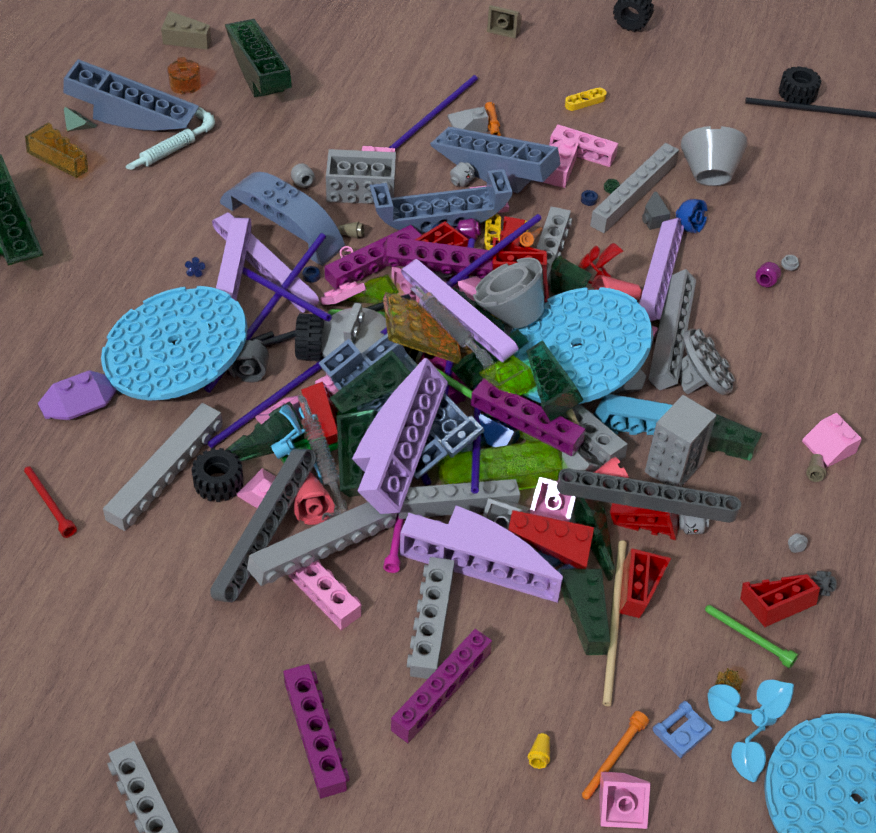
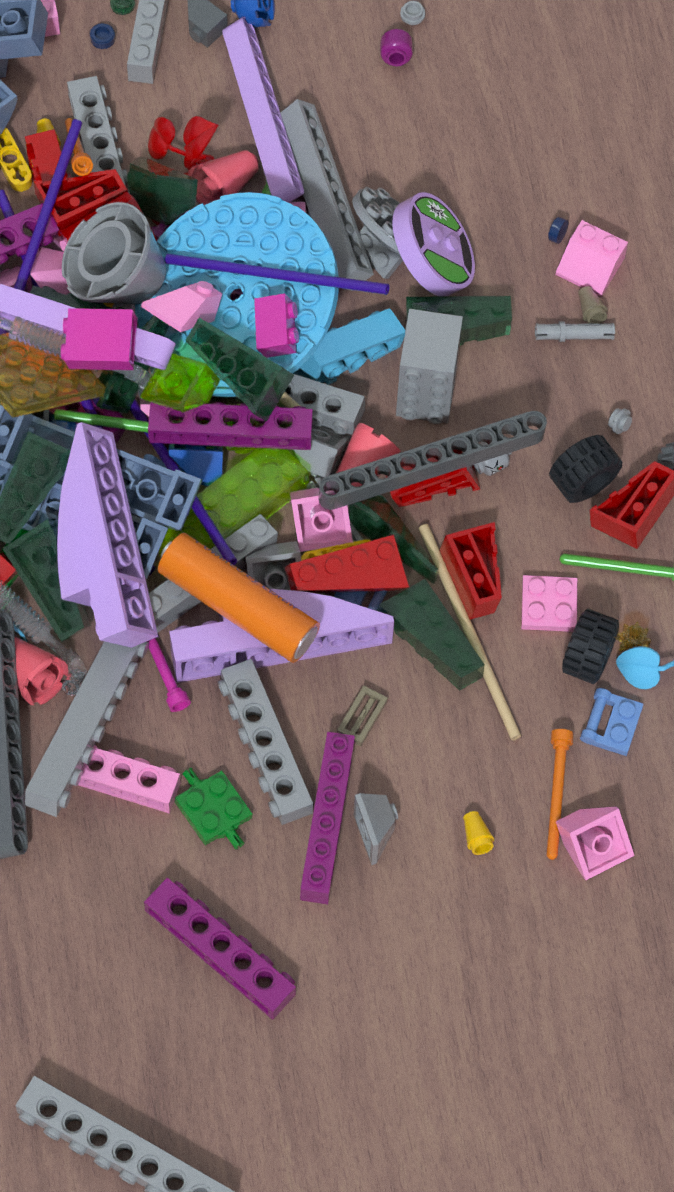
camera: 30 degrees left, 15 degrees up
(371, 641) = (213, 808): none -> green plate
(464, 511) = (238, 597): none -> orange piece
(471, 322) = (99, 339): none -> dark pink brick
(472, 704) = (375, 822): none -> light grey slope
(508, 641) = (359, 739): none -> dark tan tile
(537, 330) = (185, 305): none -> bright pink slope
(588, 366) = (276, 325): none -> dark pink brick
(610, 340) = (280, 274): none -> dark purple piece
(681, 631) = (549, 603): none -> bright pink plate
(693, 667) = (590, 646): none -> black tyre
(725, 379) = (433, 244): none -> lavender brick
(754, 556) = (585, 468): none -> black tyre
(795, 477) = (574, 331): none -> light grey pin
(818, 414) = (558, 230): none -> dark blue tile

